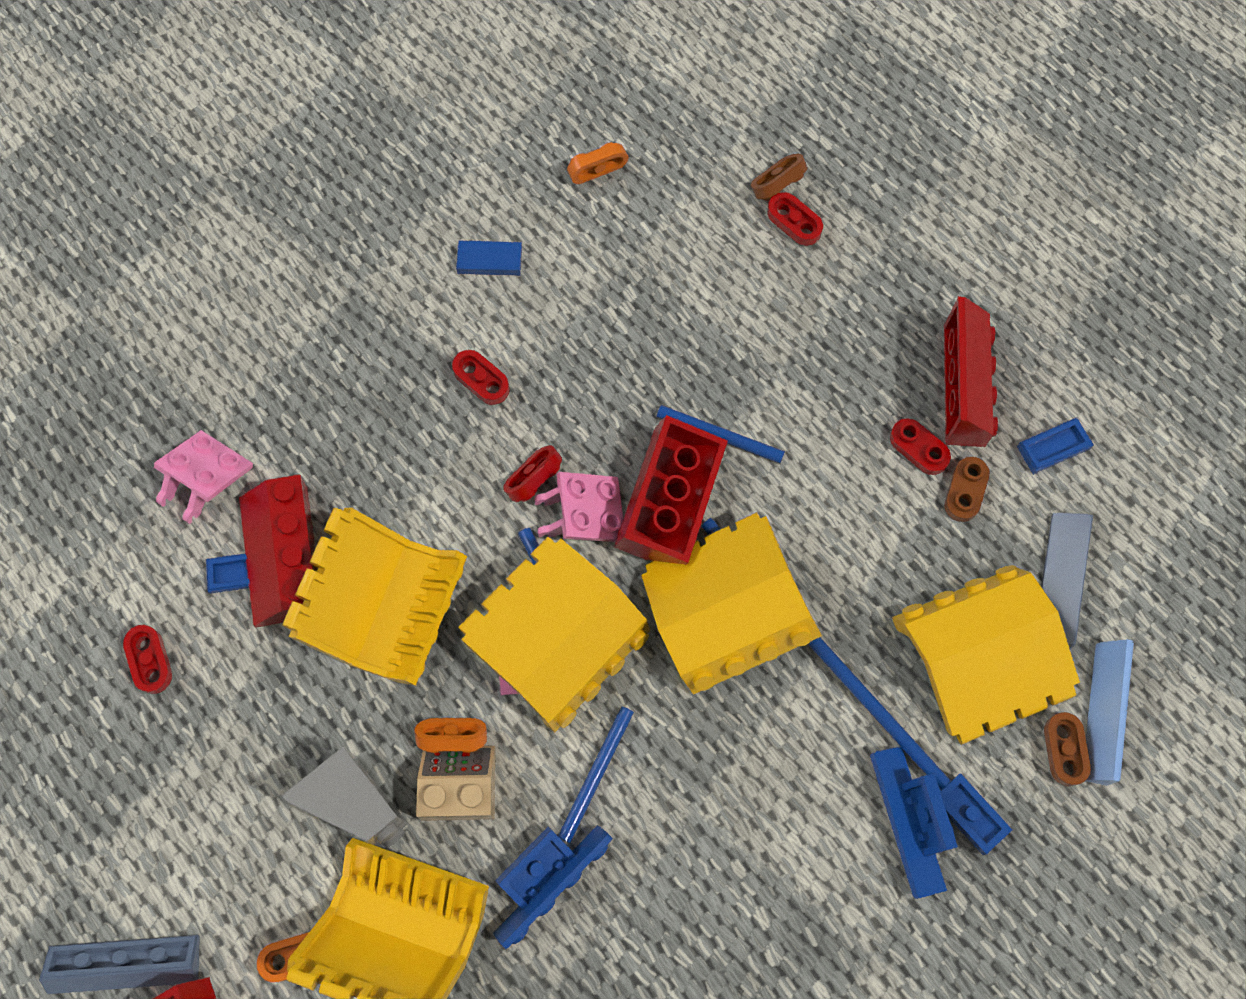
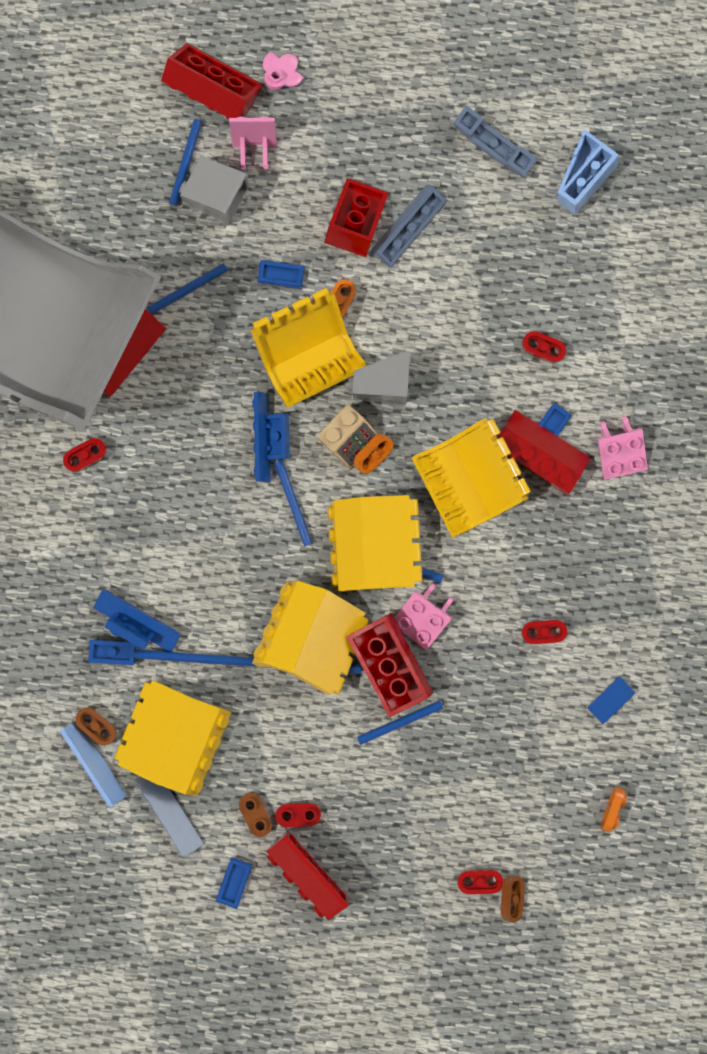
camera: 135 degrees right, 15 degrees up
(532, 474) = (466, 609): red plate -> none

